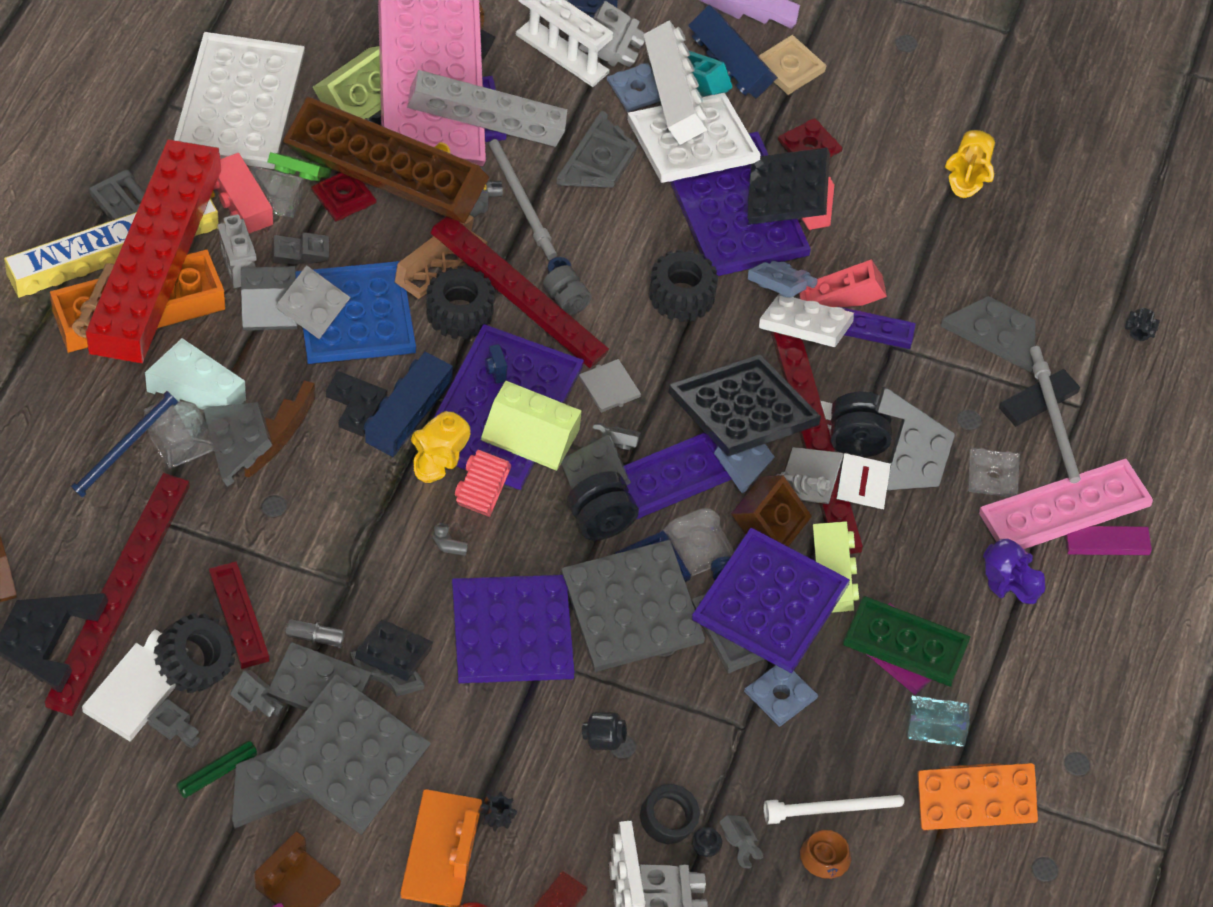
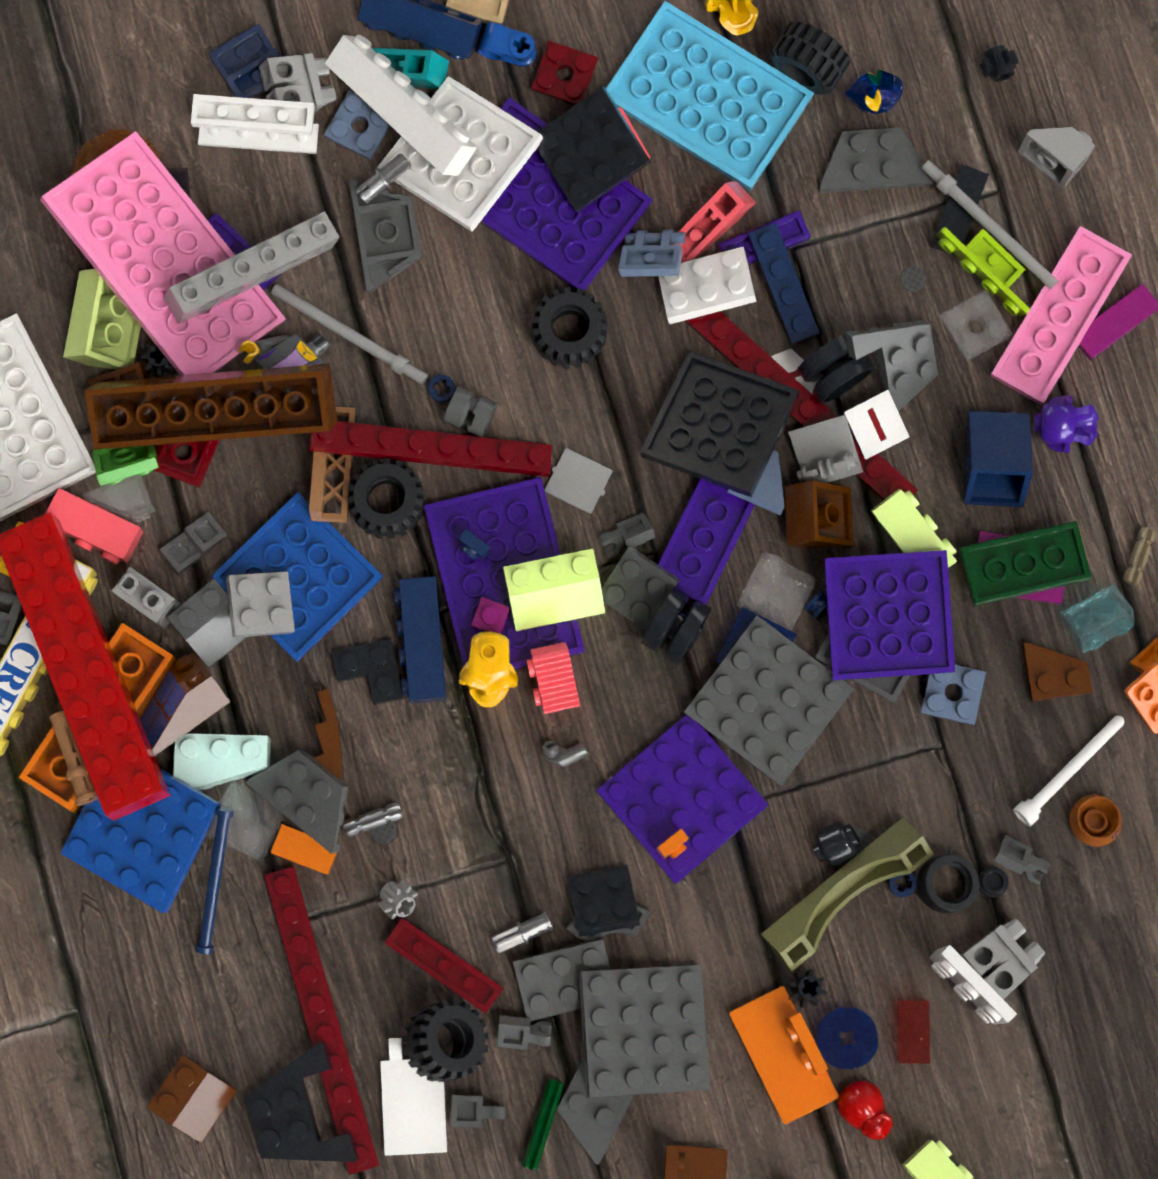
camera: 35 degrees left, 25 degrees up
(99, 391) = (146, 849): none -> blue plate
(206, 478) = (302, 849): none -> orange tile
(213, 322) = (181, 702): none -> slope
(248, 553) = (397, 899): none -> light grey gear
(272, 491) = (372, 819): none -> flat silver axle
(473, 414) = (490, 616): none -> magenta plate
(477, 640) = (674, 845): none -> orange plate
(500, 886) = (864, 1036): none -> clear blue plate
(624, 763) = (890, 855): none -> olive arch
(625, 117) = (383, 178): none -> flat silver axle
(635, 787) = (907, 891): none -> dark blue bush
(782, 104) = (503, 45): none -> blue piece
(867, 351) = (783, 283): none -> dark blue plate
(872, 736) = (1054, 674): none -> reddish brown wing
(905, 217) = (708, 95): none -> medium azure plate
(939, 563) = (997, 459): none -> dark blue slope
(997, 230) = (810, 57): none -> black tyre
(1005, 700) = (1139, 555): none -> dark tan axle
(1031, 287) = (876, 93): none -> clear blue hair
(1035, 437) = (990, 263): none -> lime bracket
(1143, 398) = (1057, 152): none -> light grey slope

